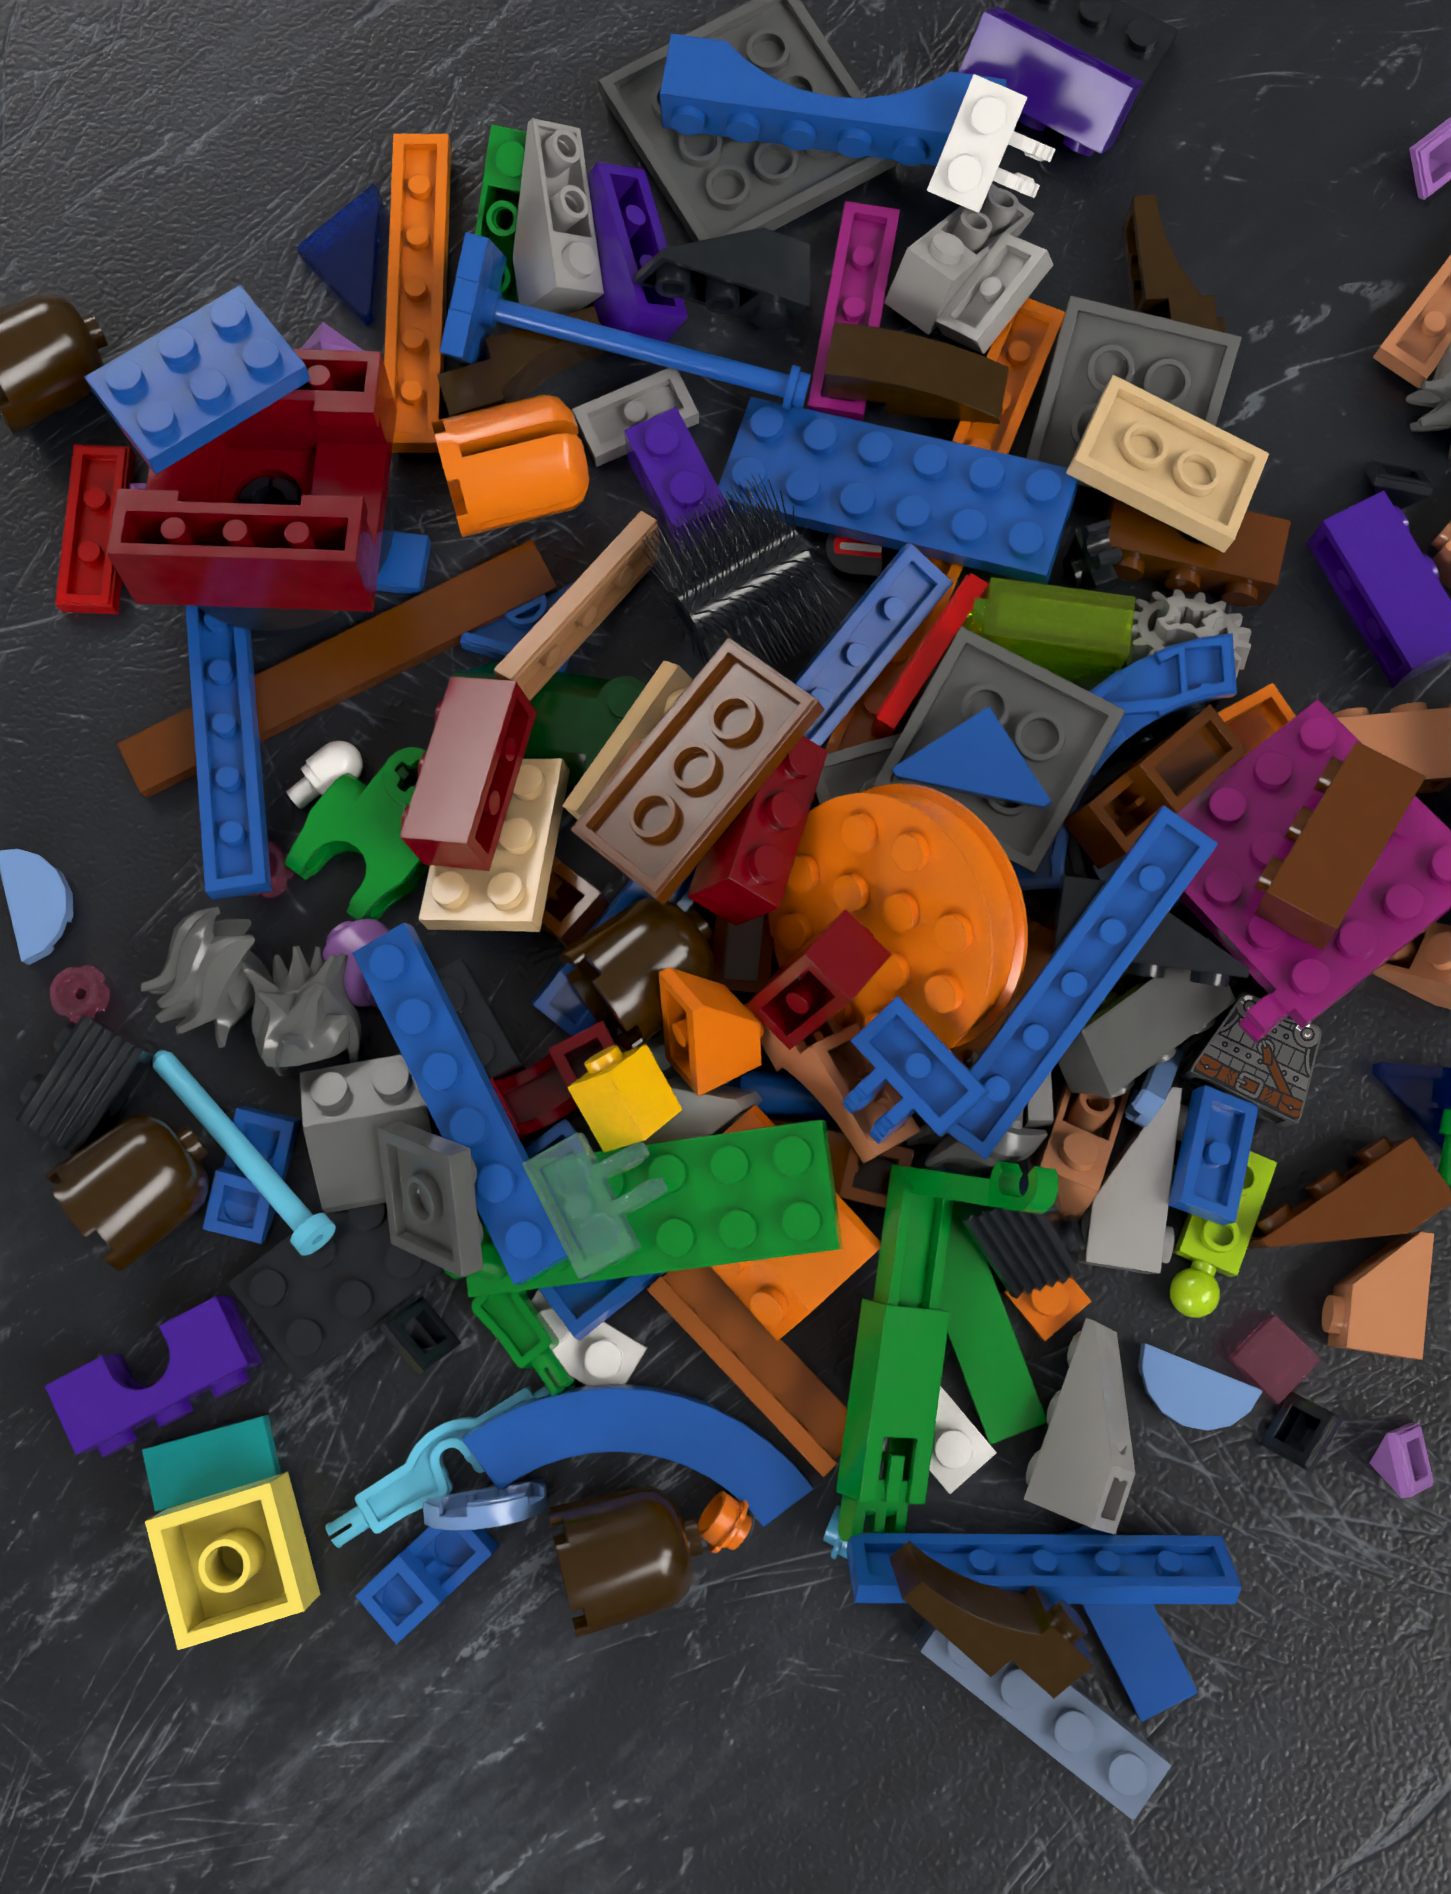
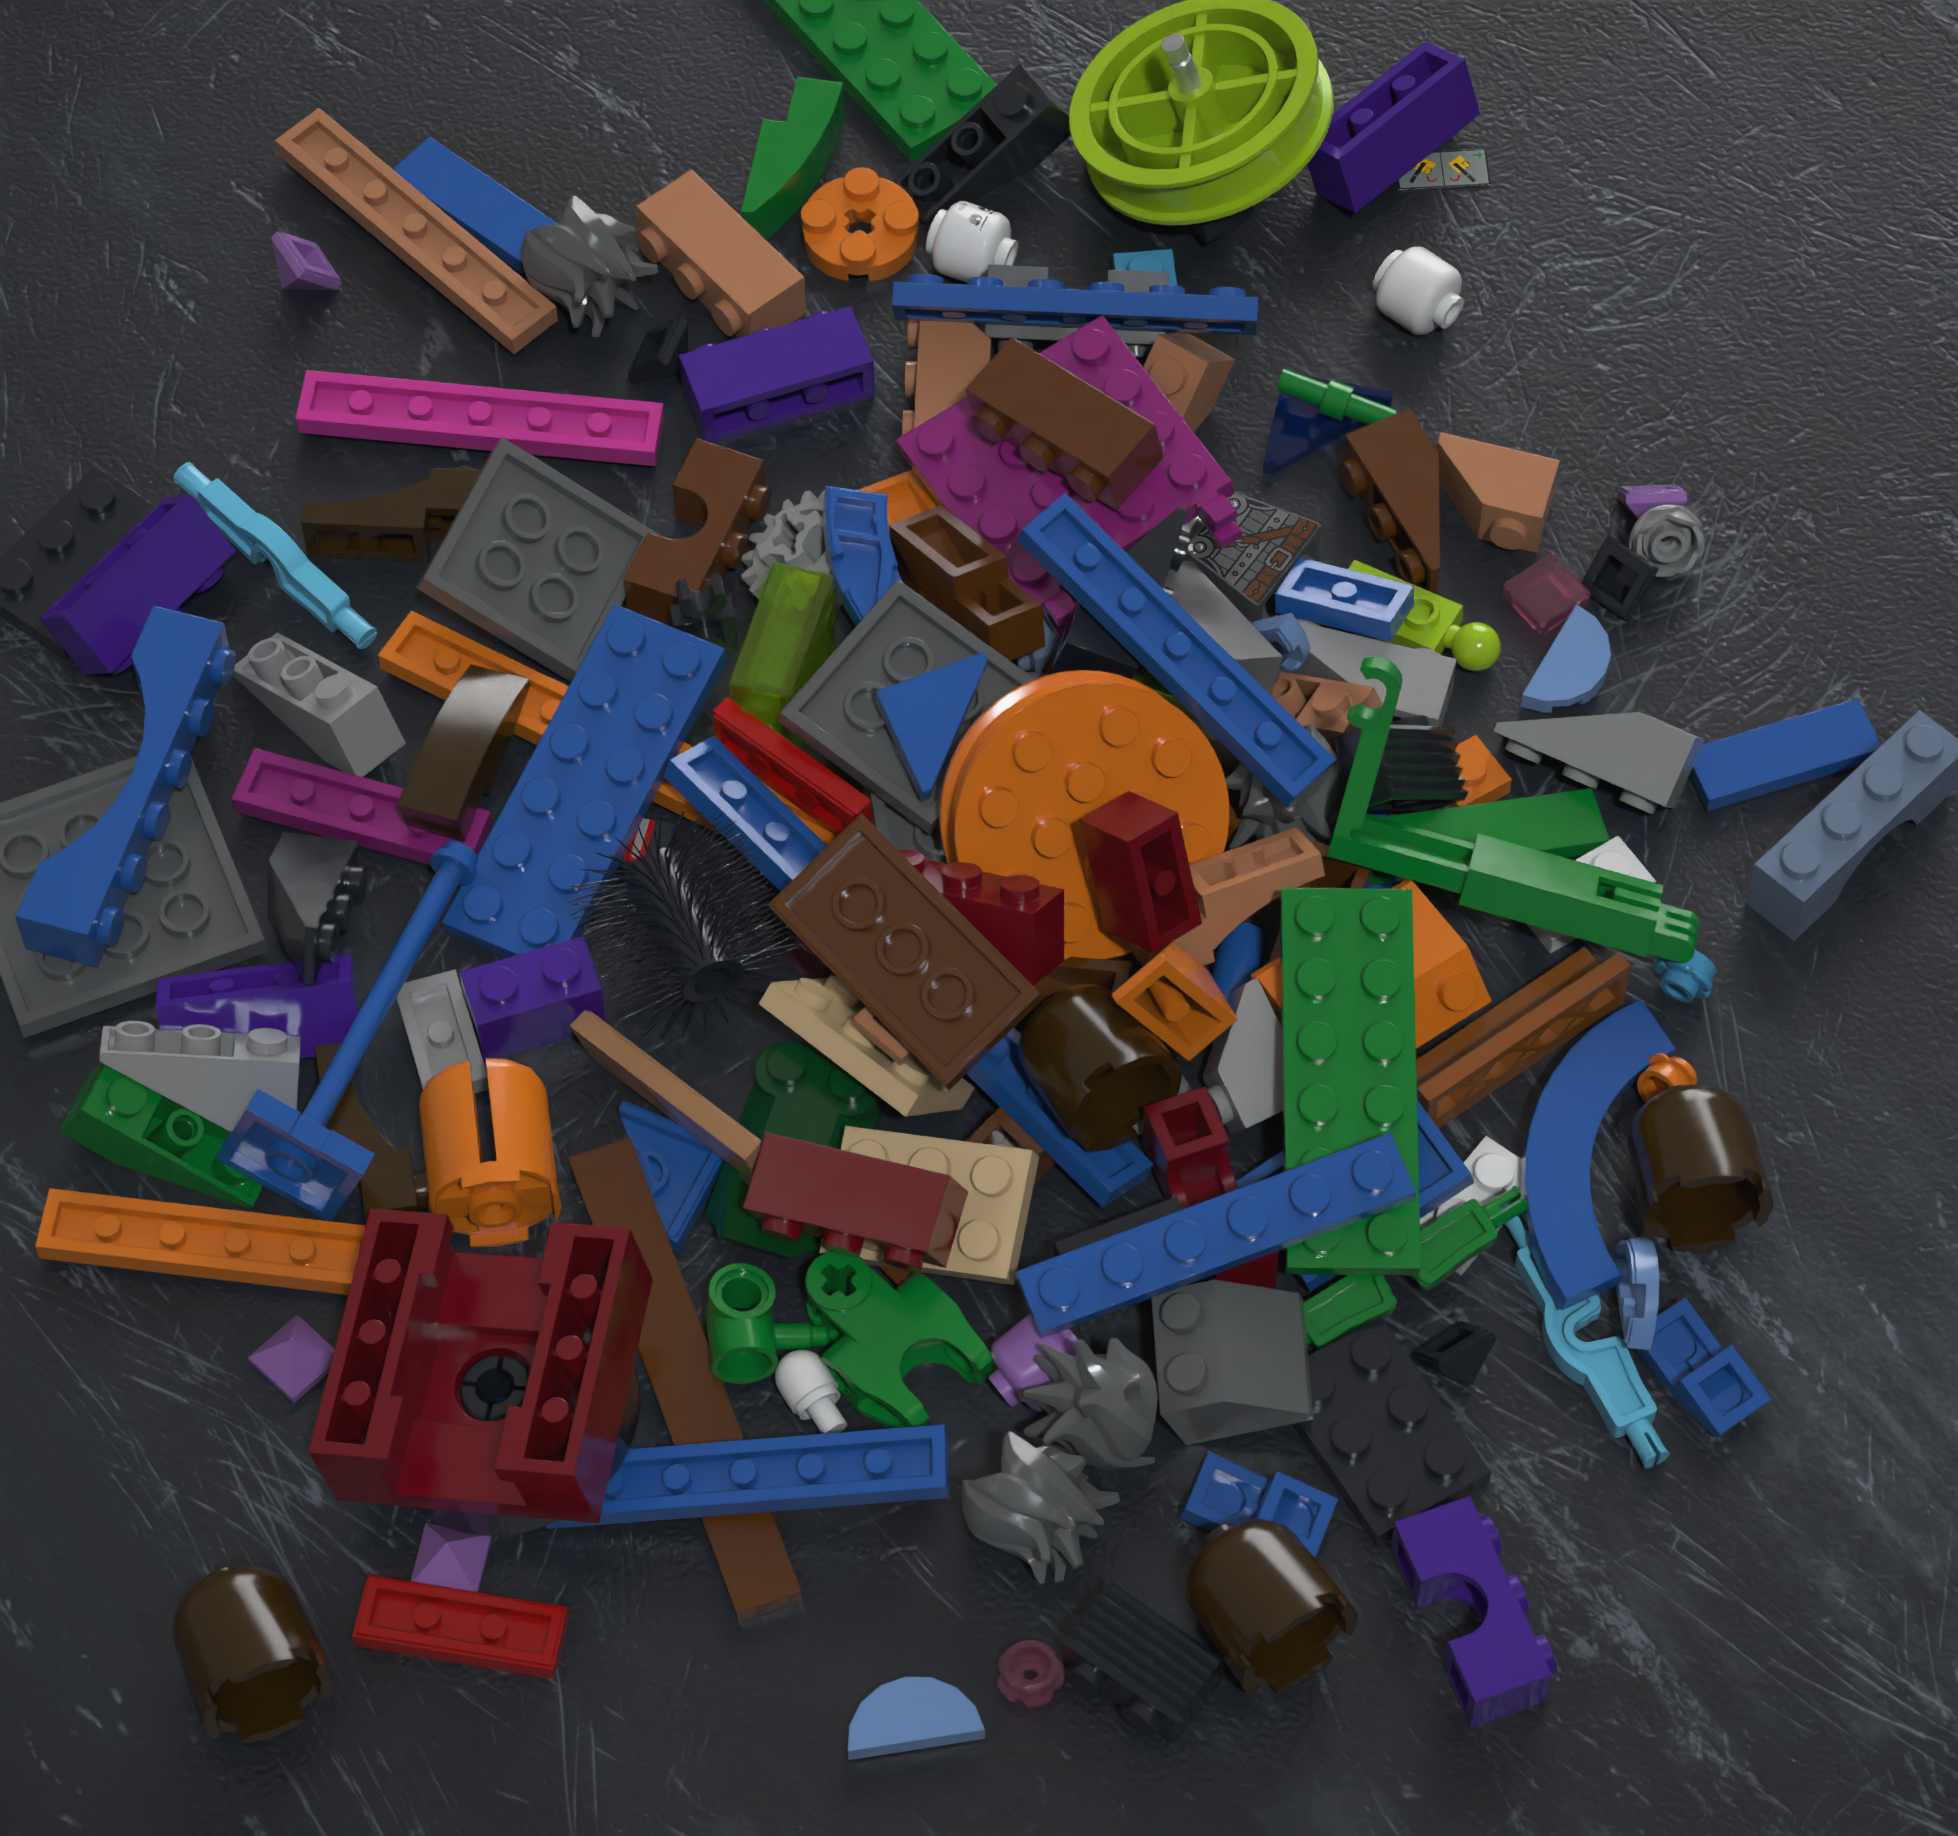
camera: 85 degrees left, 20 degrees down
(198, 379) = (374, 1382): plate -> none
(211, 1462) = (1570, 1575): teal tile -> none
(232, 1560) = (1673, 1531): light yellow brick -> none
(309, 1230) = (1329, 1422): medium azure bar -> none
(347, 252) = (167, 1322): clear blue tile -> none
(359, 717) = (747, 1342): none -> green piece
(431, 1197) = (1315, 1271): dark grey plate -> none
(583, 1204) = (1342, 1111): clear light blue hinge -> none
(624, 1096) = (1234, 1072): yellow brick -> none
(918, 1068) = (1243, 789): blue hinge -> none
(978, 144) = (228, 638): white hinge -> none
(994, 292) = (380, 656): light grey plate -> none
(996, 1623) = (1781, 807): dark brown slope -> none
(1060, 1566) = (1732, 795): blue plate -> none
(1114, 181) = (262, 540): none -> medium azure piece
(1168, 463) = (622, 525): tan plate -> none
(1291, 340) = (480, 417): none -> dark pink plate
(1354, 1479) = (1680, 550): none -> light grey plate

